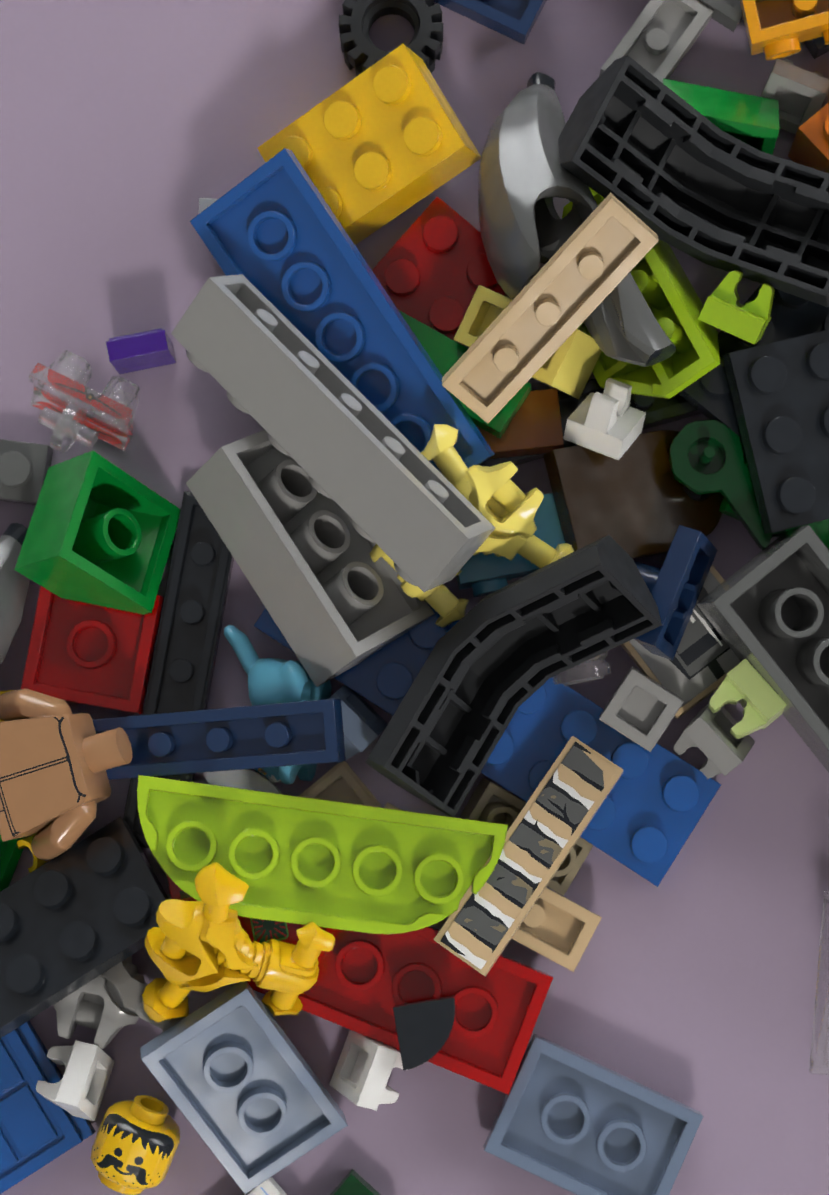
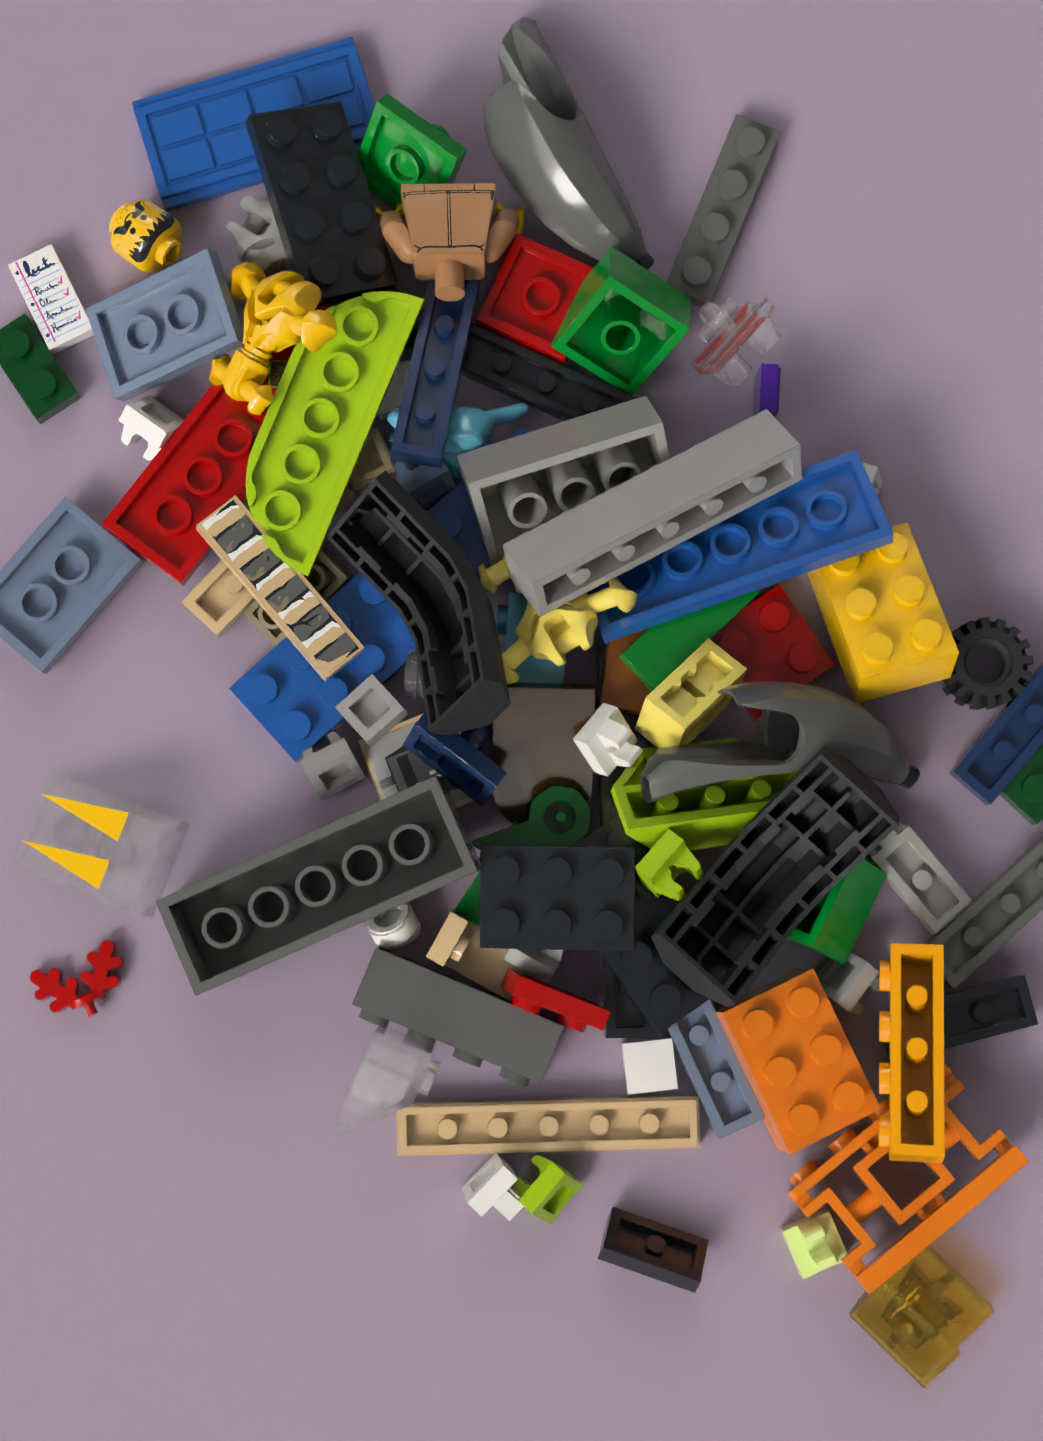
camera: 95 degrees right, 0 degrees up
(83, 1080) = (205, 207): white tile -> none
(423, 1028) = (170, 470): black tile -> none
(550, 308) = (705, 706): tan plate -> none
(755, 695) = (366, 793): yellowish green tile -> none

